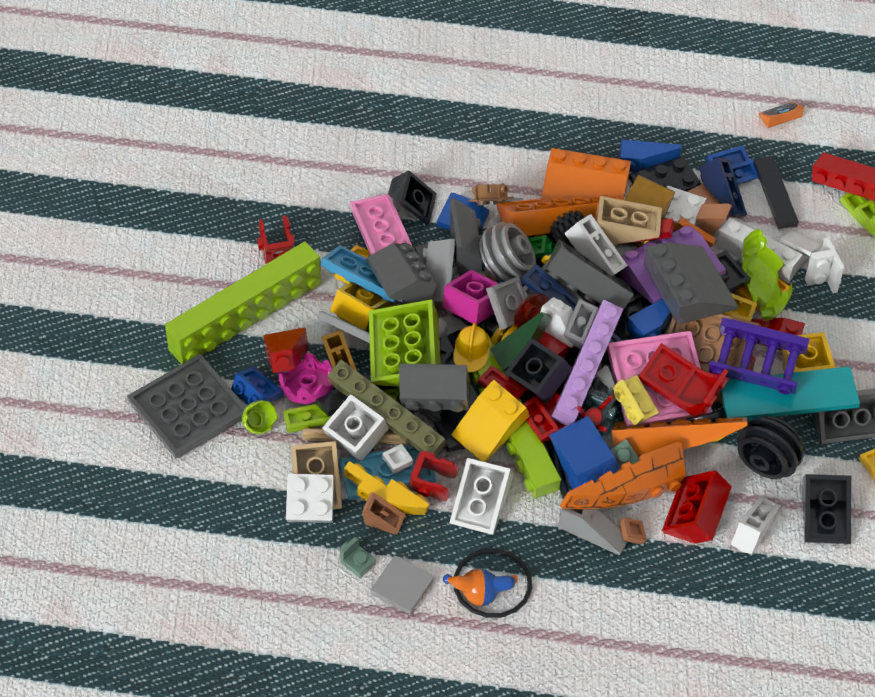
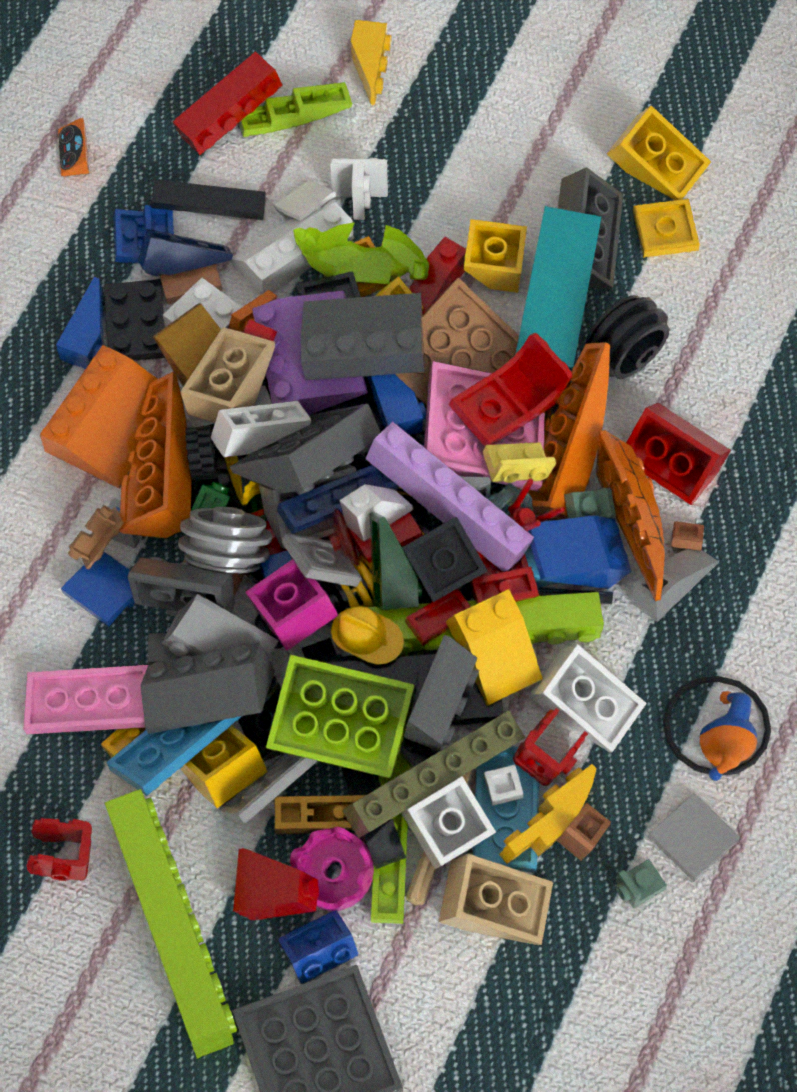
camera: 70 degrees left, 10 degrees up
(259, 417) = (374, 953): lime hair -> none
(310, 498) = (540, 915): white brick -> none
(413, 195) = (45, 642): black slope -> none
(580, 323) = (390, 481): light grey slope -> none
(712, 217) = (239, 278): nougat slope -> none
(755, 525) = (718, 396): white slope -> none
(773, 340) = (480, 291): dark purple fence -> none
(827, 508) = (714, 312): black slope -> none

